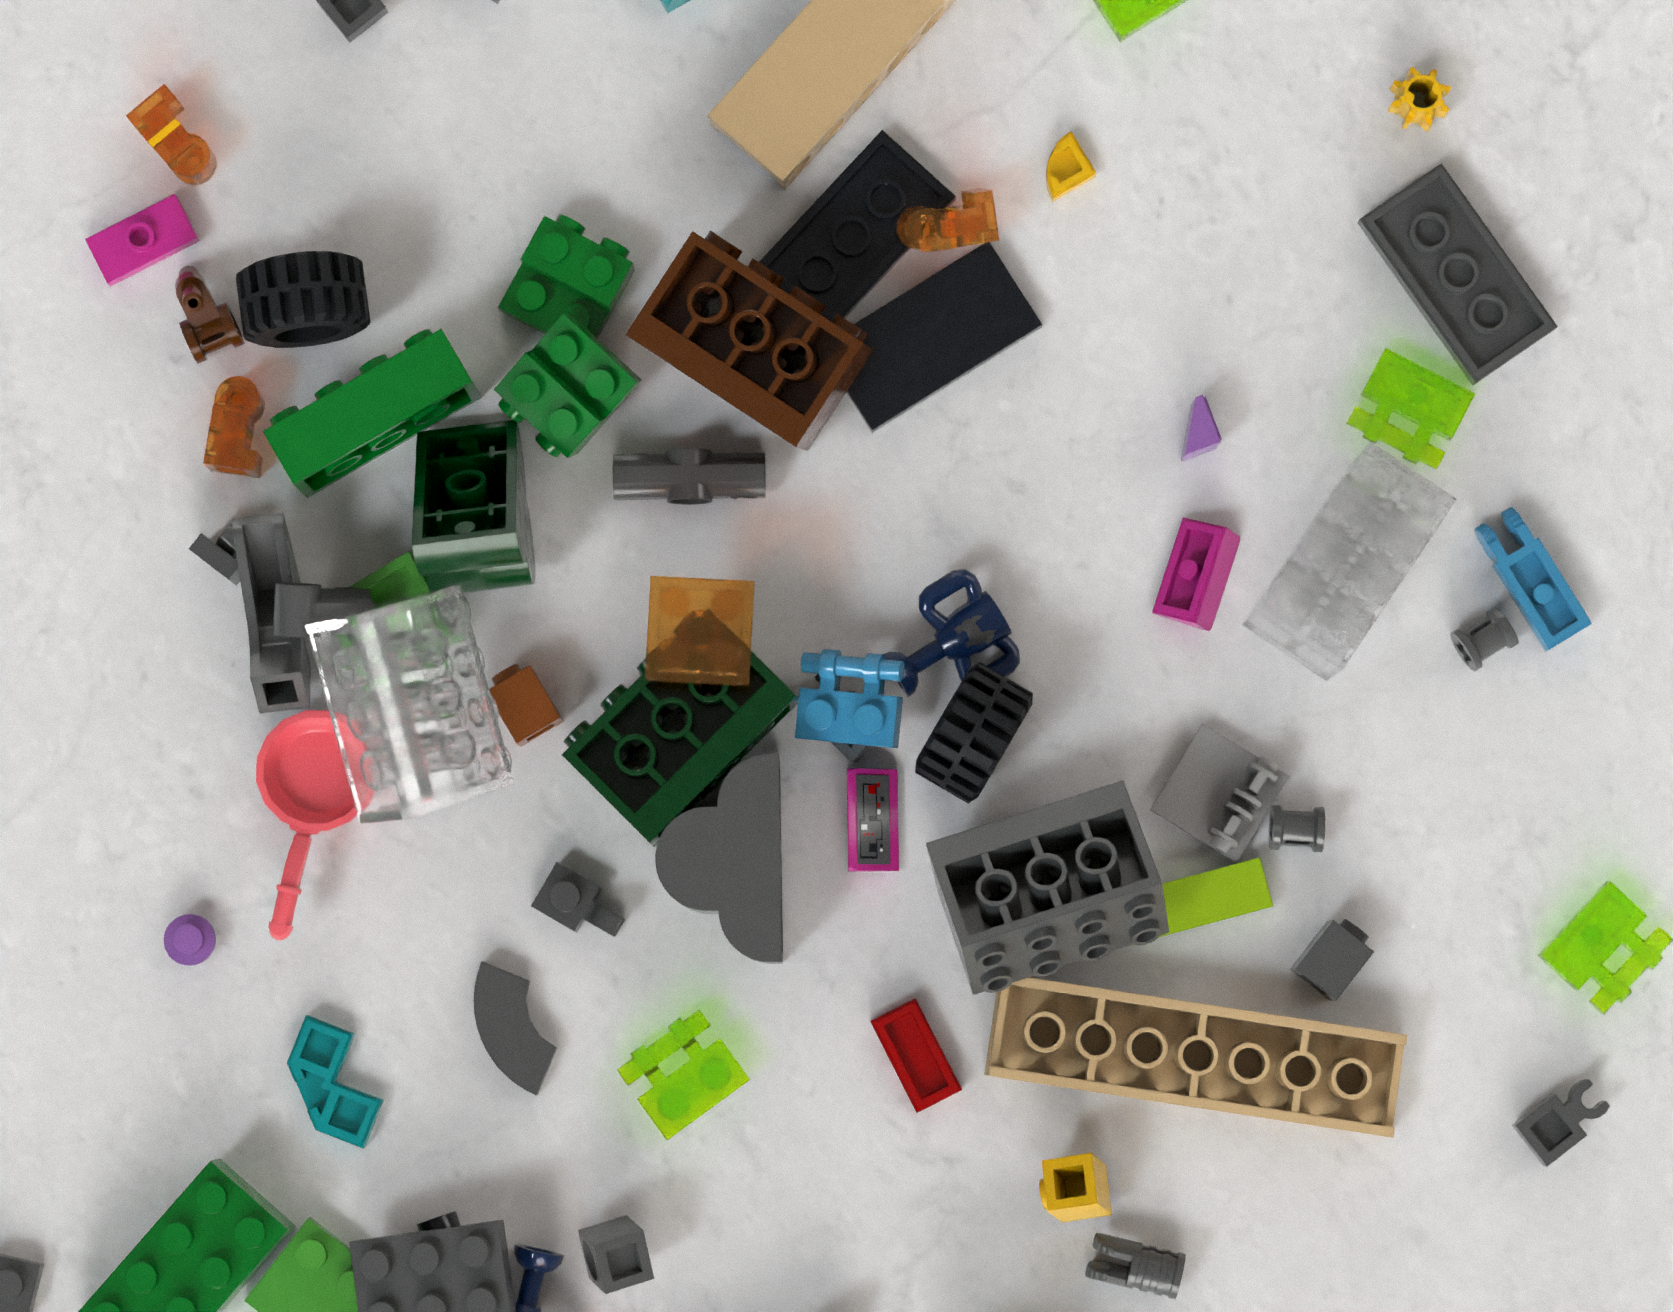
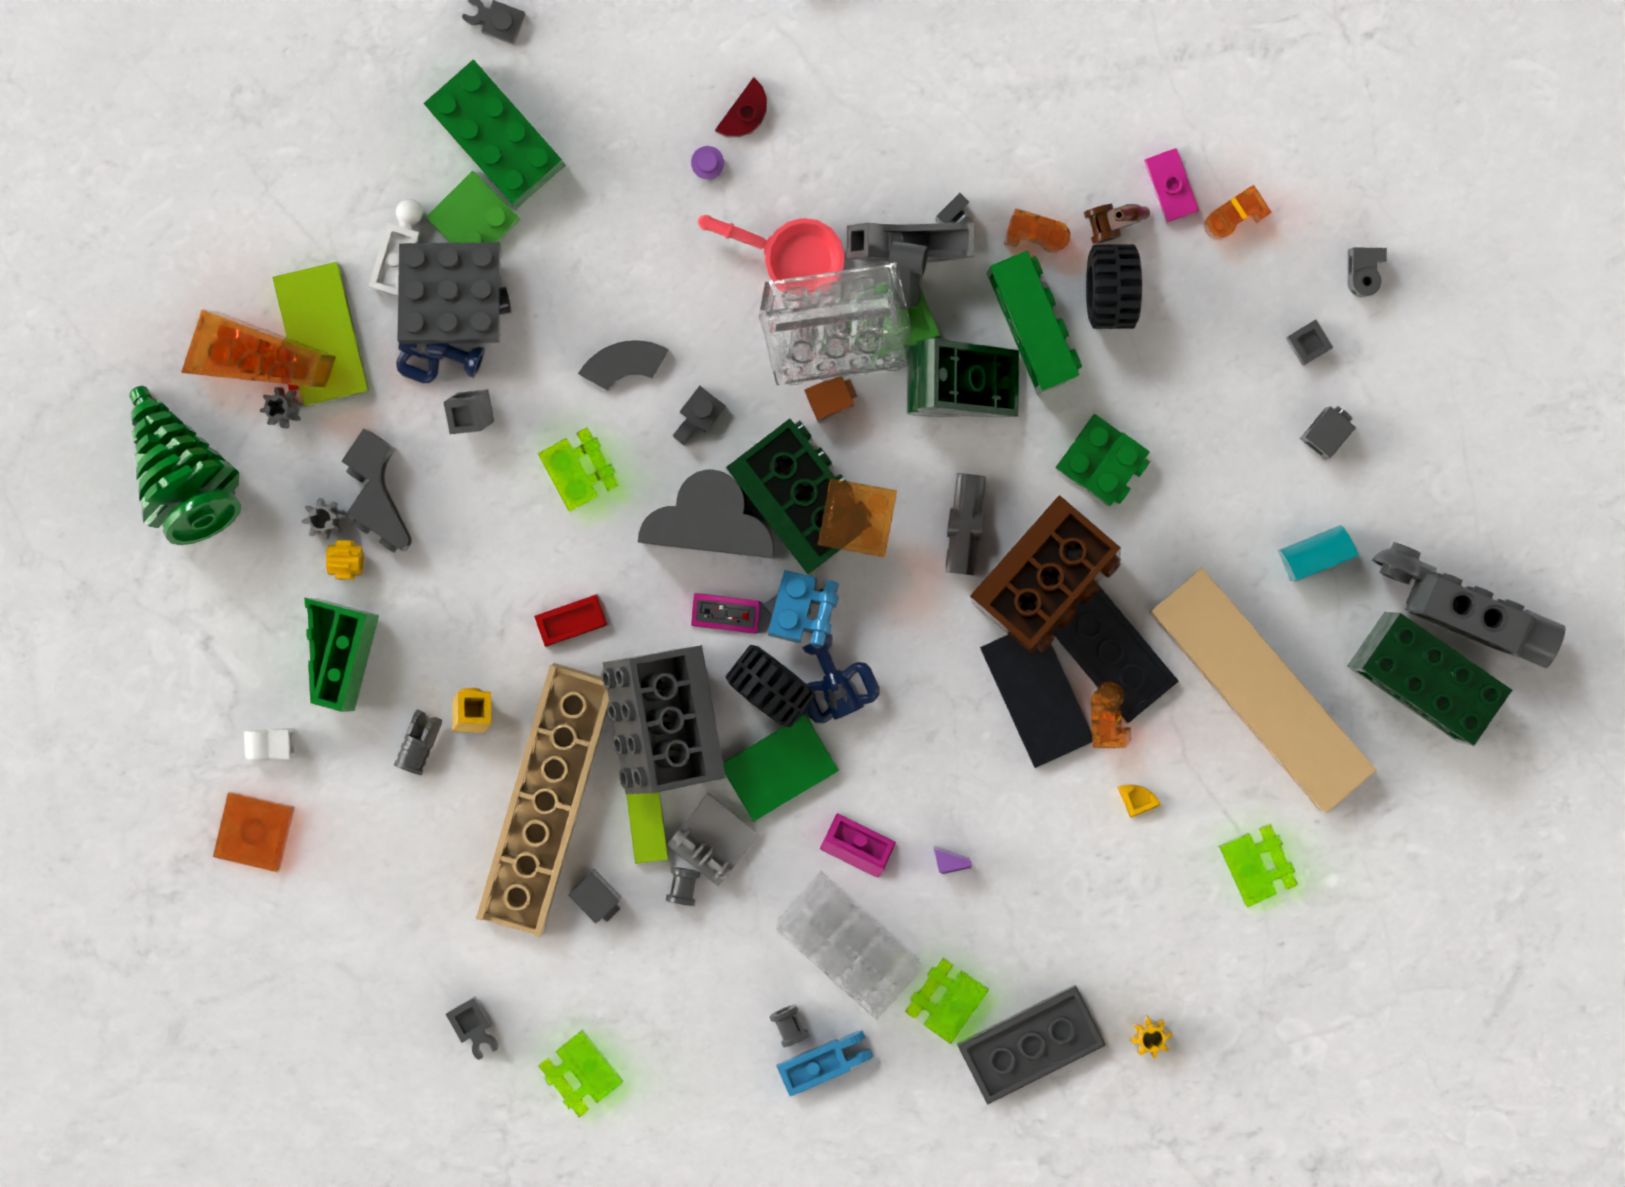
camera: 100 degrees right, 5 degrees up
(107, 891) = (745, 113): none -> dark red plate
(330, 1104) = (614, 233): teal tile -> none
(566, 387) = (1034, 451): green plate -> none
(1096, 706) = (779, 768): none -> green tile

